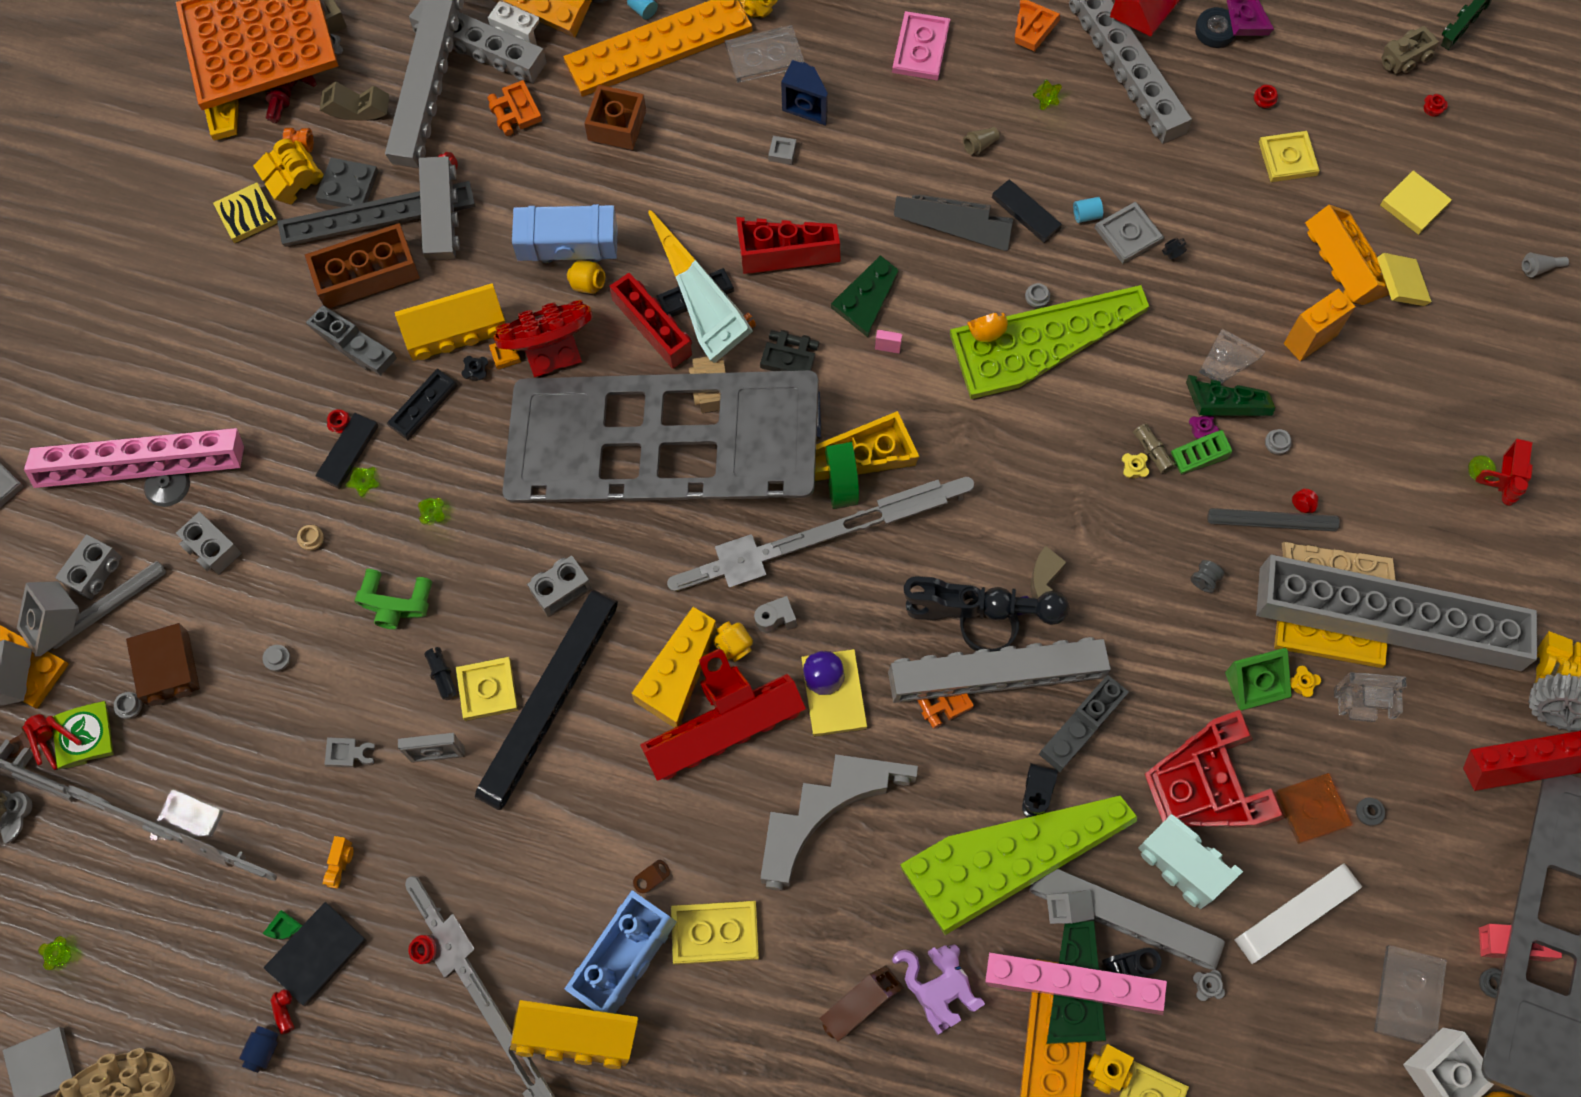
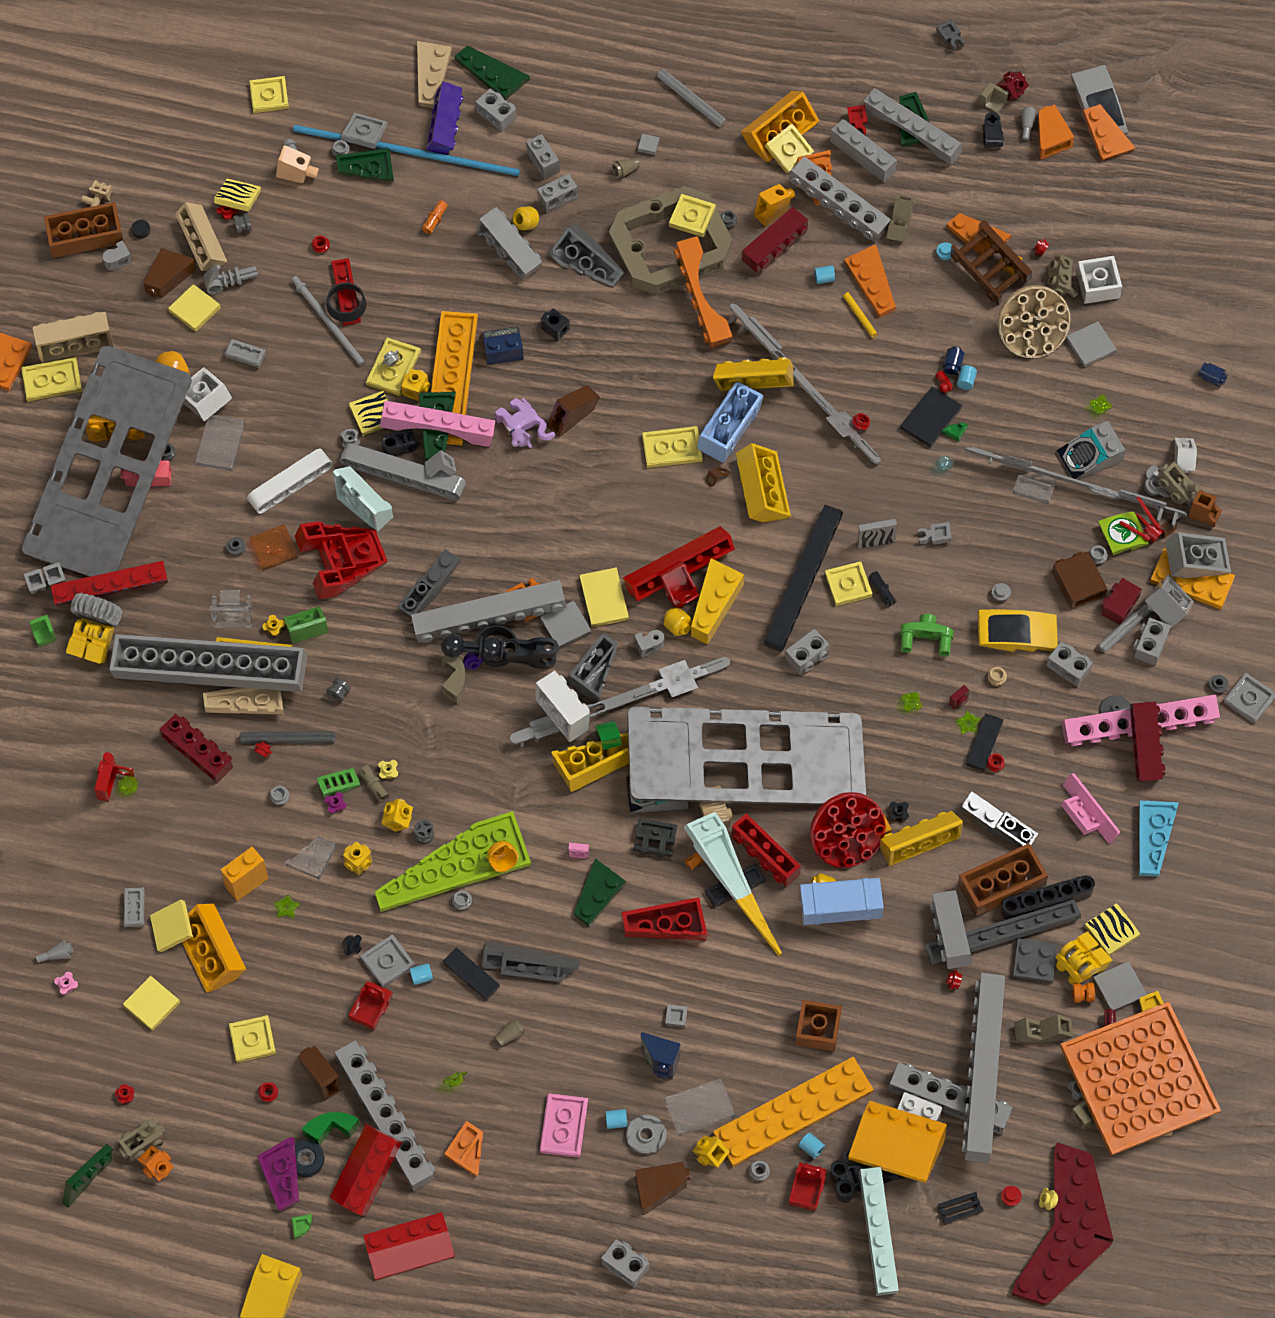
camera: 175 degrees right, 5 degrees down
(24, 510) = (1218, 689): none -> dark grey plate
(89, 869) = (1092, 451): none -> slope
(112, 627) = (1121, 601): none -> dark red brick
(133, 414) = (1146, 741): none -> dark red brick
(162, 317) = (1154, 832): none -> medium azure wing
(239, 347) = (1086, 811): none -> bright pink bracket
(245, 1016) = (966, 377): none -> medium azure piece
(249, 146) = (1119, 986): none -> light grey tile
(266, 596) = (1017, 630): none -> yellow slope
(300, 244) = (1055, 891): none -> black beam
(311, 867) = (944, 463): none -> clear light blue plate
(340, 855) = (926, 470): light orange plate -> none
(366, 507) = (959, 698): none -> dark red plate
(422, 404) = (935, 782): black tile -> none
(521, 104) = (901, 1039): orange plate -> none
(585, 852) = (762, 483): none -> yellow slope
(823, 672) = (612, 604): dark purple hair -> none
(828, 41) = (646, 1146): none -> light grey tile
(851, 781) = (587, 538): light grey arch -> none
(855, 576) = (592, 670): none -> dark grey wedge
(861, 42) = (616, 1118): none -> medium azure piece
(885, 647) = (566, 625): none -> light grey tile
(901, 502) = (562, 706): none -> white brick
(988, 865) = (494, 491): lime wing -> none
(1039, 787) = (459, 542): black piece -> none
(1089, 374) = (424, 826): none -> dark grey wheel
(1123, 396) = (397, 815): none -> yellow brick
(1149, 179) = (370, 1005): none -> red piece
(1172, 347) = (357, 858): none -> yellow brick
(1177, 1032) = (368, 412): none -> light yellow tile
(1180, 57) = (322, 1125): none -> green brick
(1206, 102) = (320, 1072): none -> reddish brown slope
(1221, 400) = (316, 822): dark green wing -> none
(1262, 300) = (287, 901): none -> clear neon green plate
(1391, 21) = (155, 1163): none -> orange brick
(1397, 508) = (196, 747): none -> dark red brick
(1452, 311) = (134, 907): none -> light grey plate
(1522, 234) = (66, 988): none -> bright pink plate

